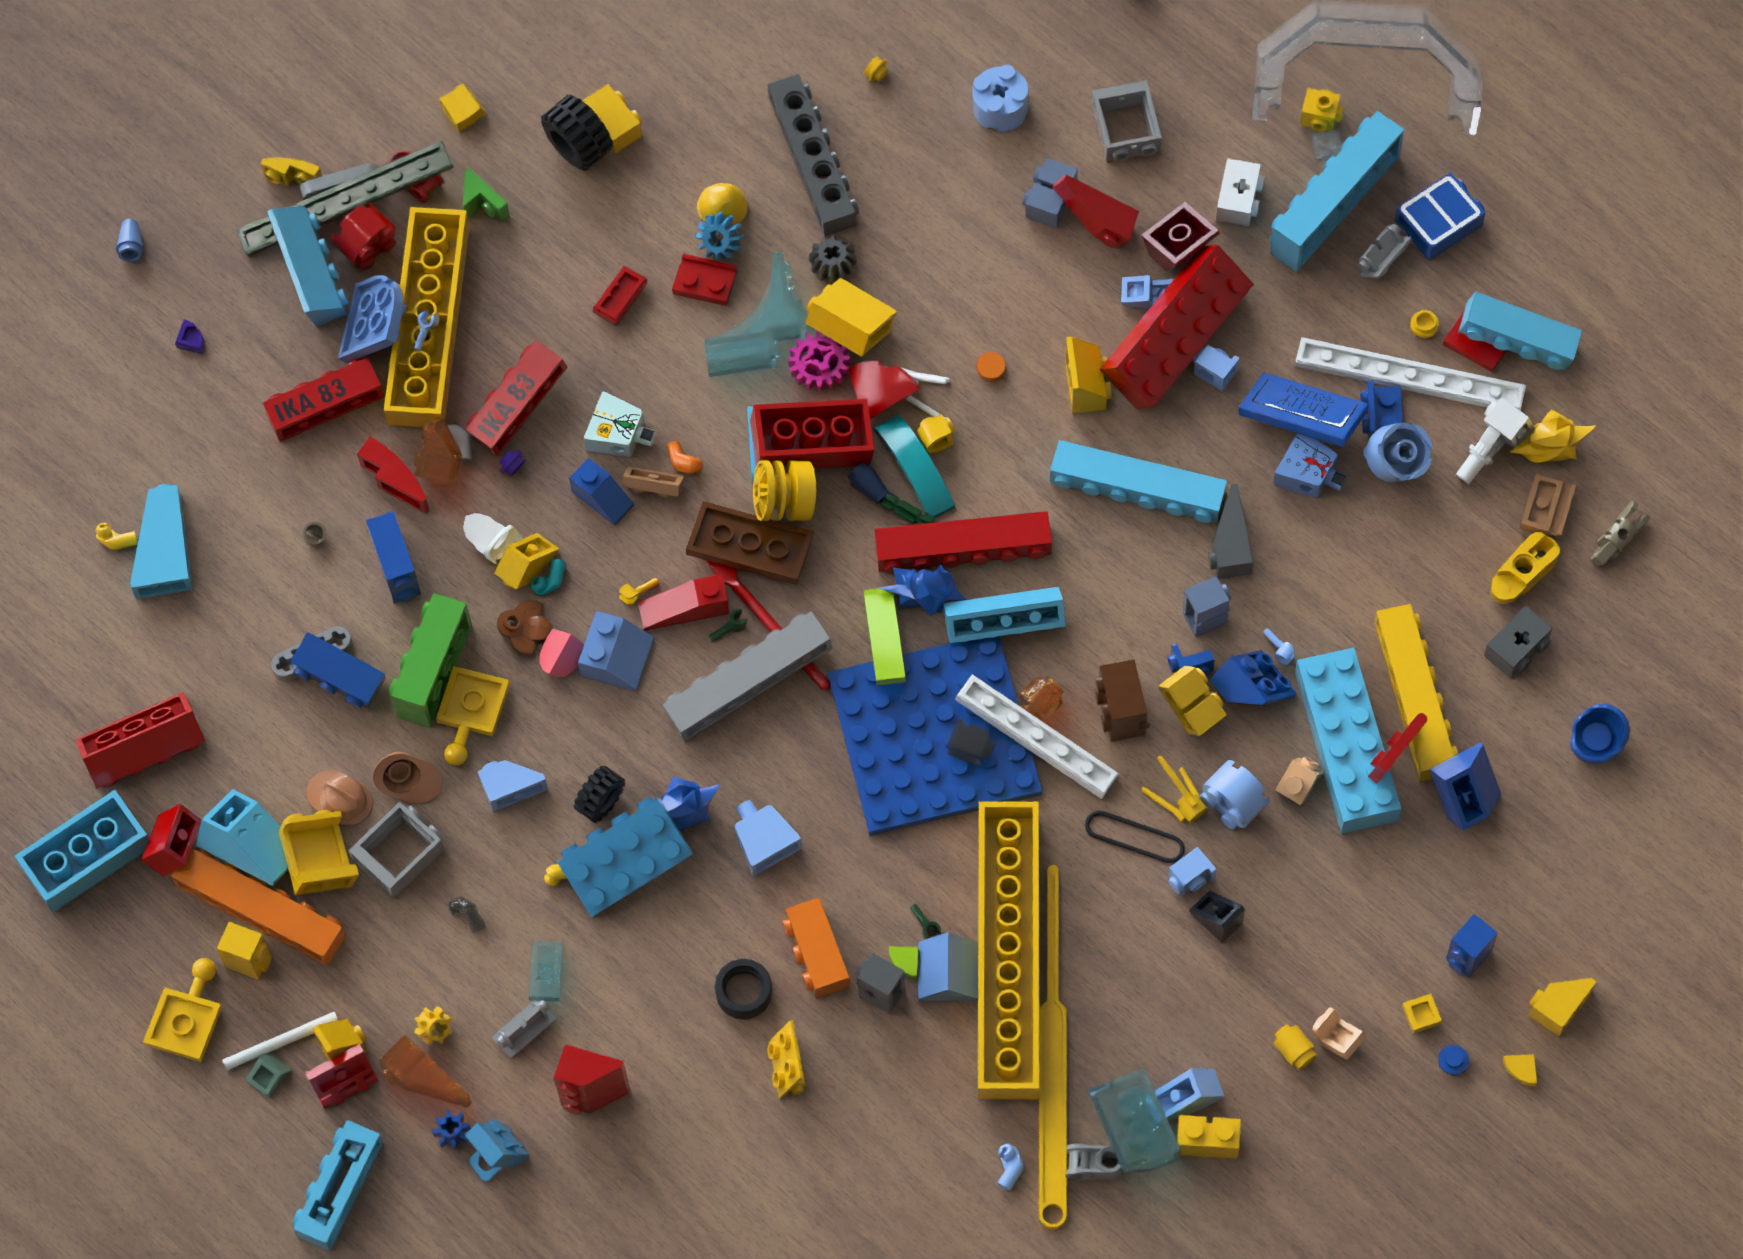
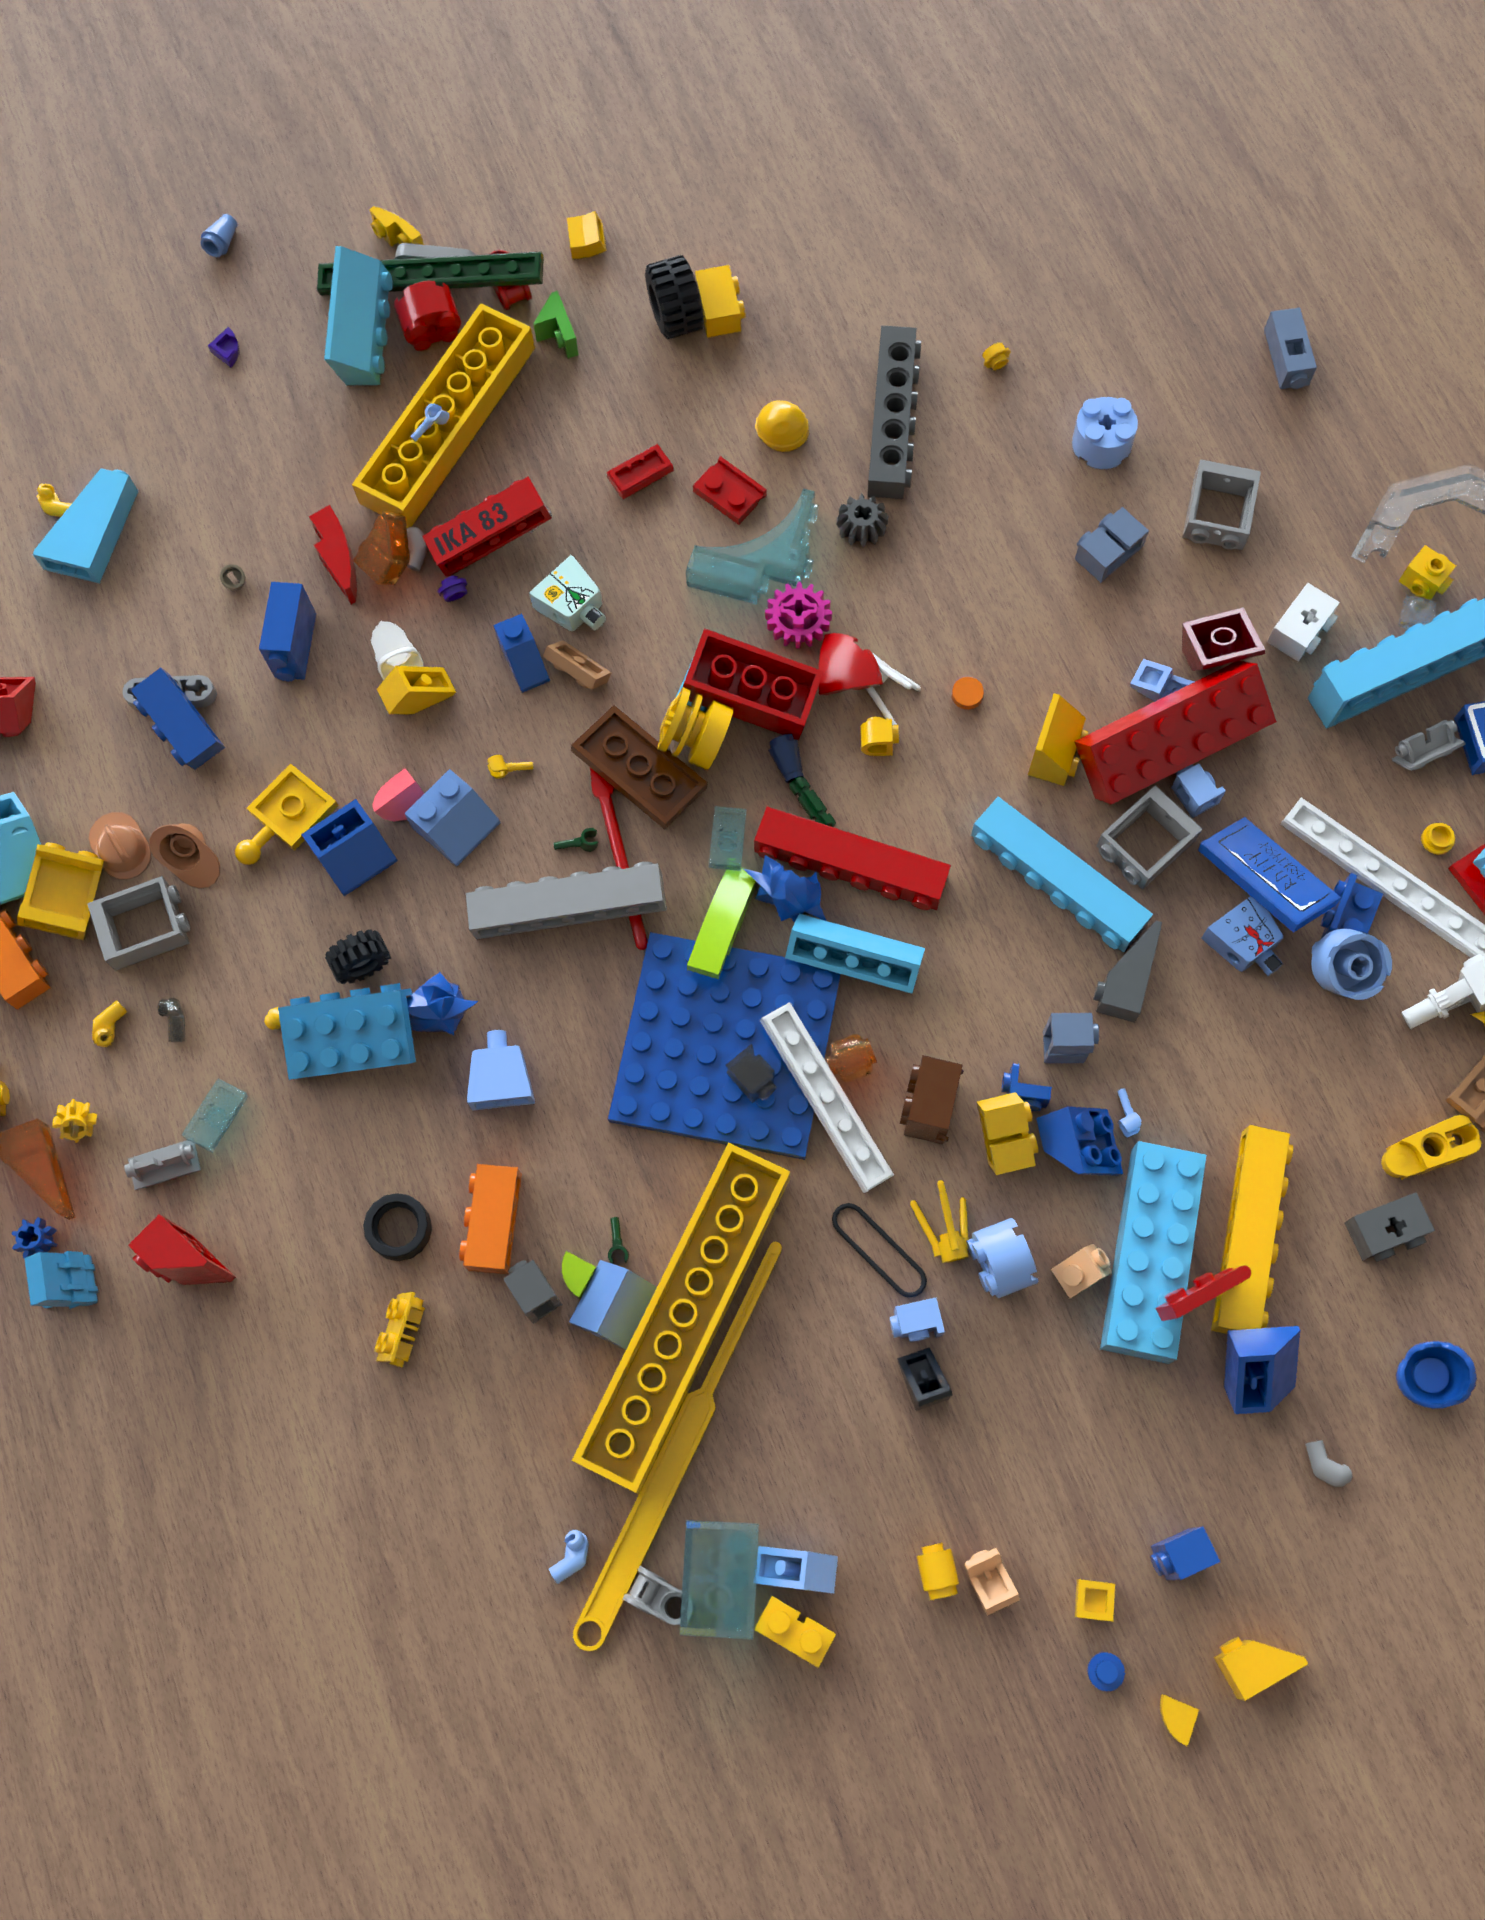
camera: 25 degrees right, 5 degrees up
(323, 399) = (308, 452): red brick -> none
(372, 318) = (391, 394): medium blue plate -> none
(410, 942) = (104, 1024): none -> yellow arm
(430, 659) = (263, 748): bright green brick -> none
(509, 783) = (278, 905): light blue slope -> none
(529, 627) = (385, 757): dark orange plate -> none
(543, 712) = (349, 847): none -> blue slope
(547, 584) = (429, 722): teal arm -> none
(682, 462) = (616, 658): orange arm -> none
(685, 603) = (547, 800): red slope -> none
(724, 246) = (762, 464): dark azure gear -> none
(850, 316) = (849, 583): yellow brick -> none
(852, 569) = (727, 838): none -> clear light blue plate
(916, 466) = (843, 761): teal slope -> none
(1099, 213) = (1150, 584): red slope -> none
(1201, 397) = (1164, 812): none -> light grey window
(1550, 841) = (1326, 1469): none -> light grey arm

